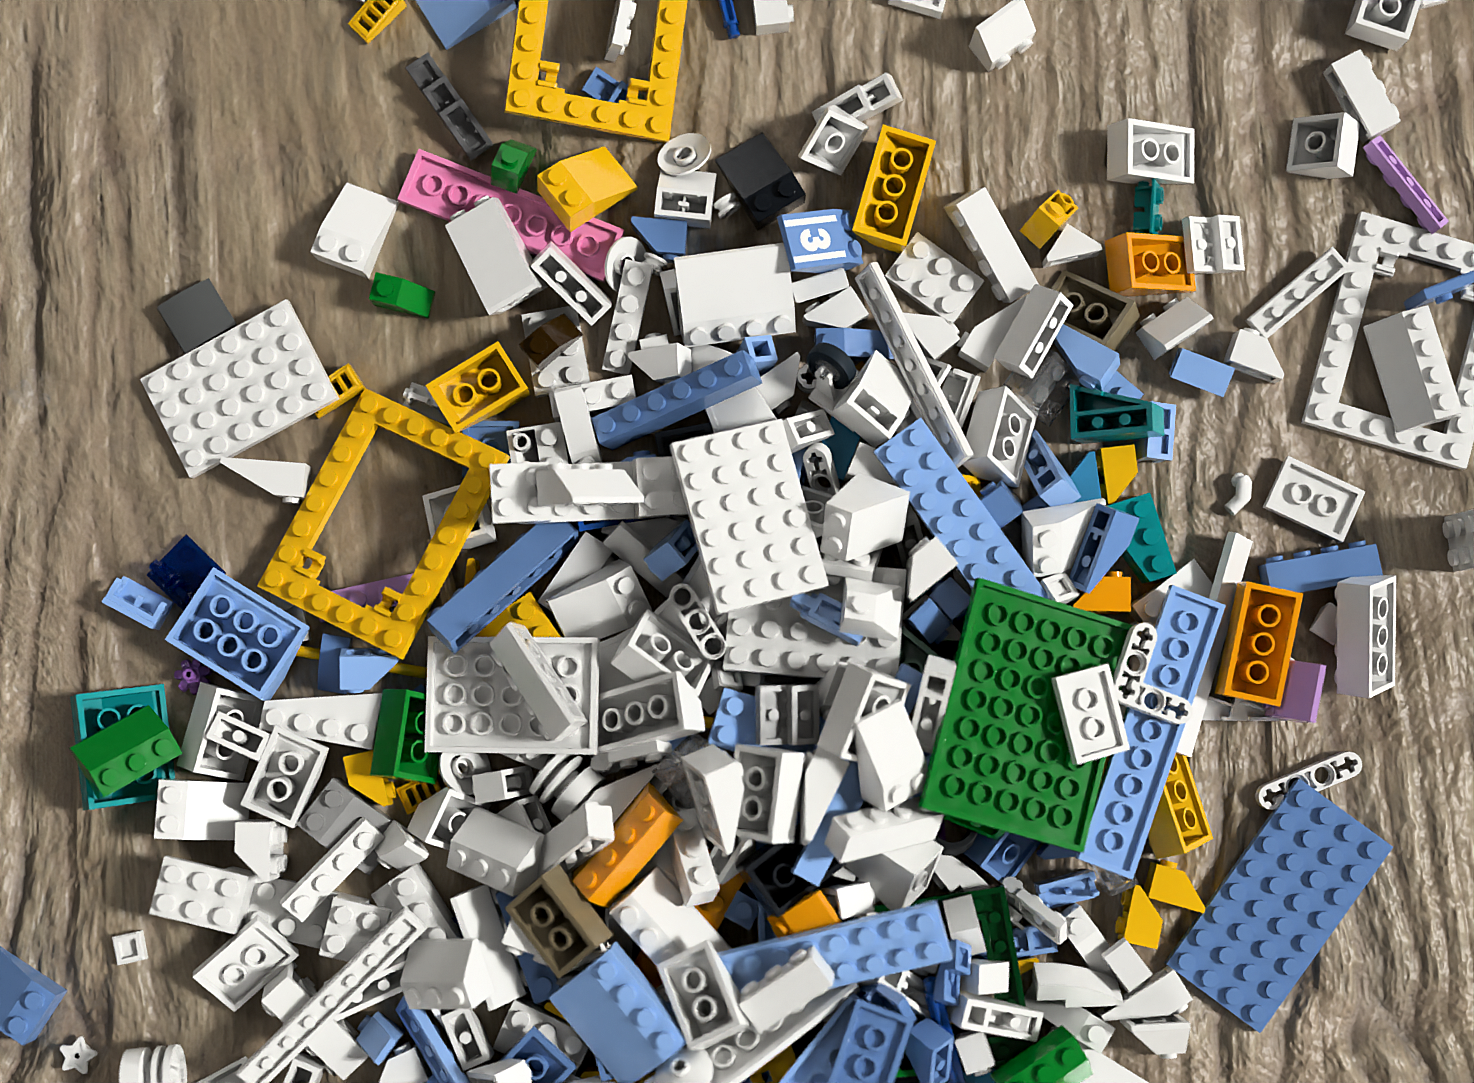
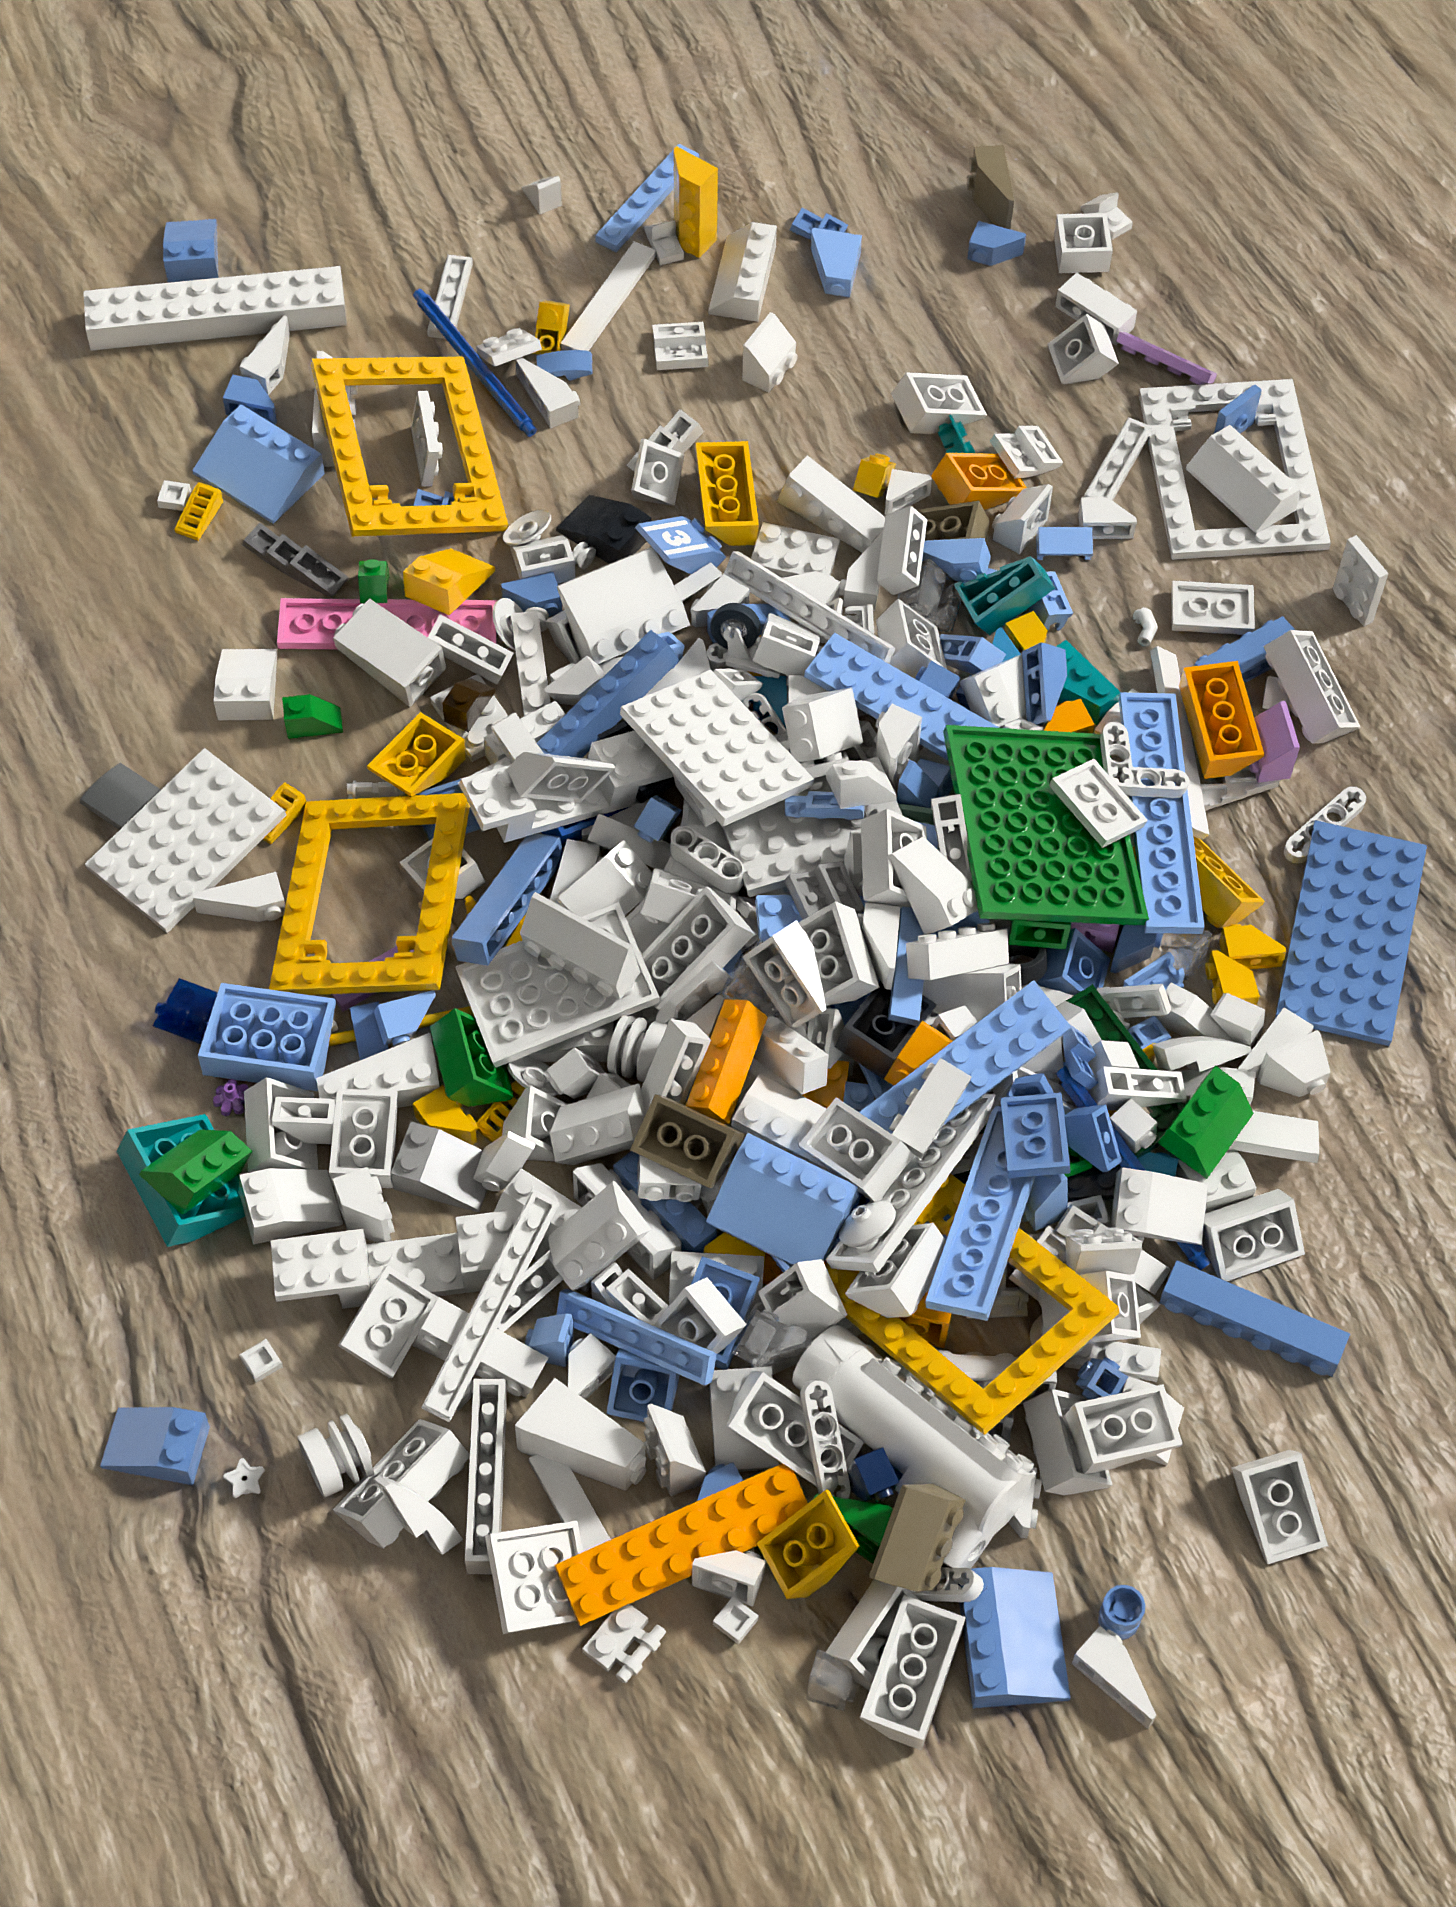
camera: 20 degrees left, 25 degrees down
(138, 602) = (154, 1052): light blue hinge -> none
(332, 869) = (442, 1203): white plate -> none

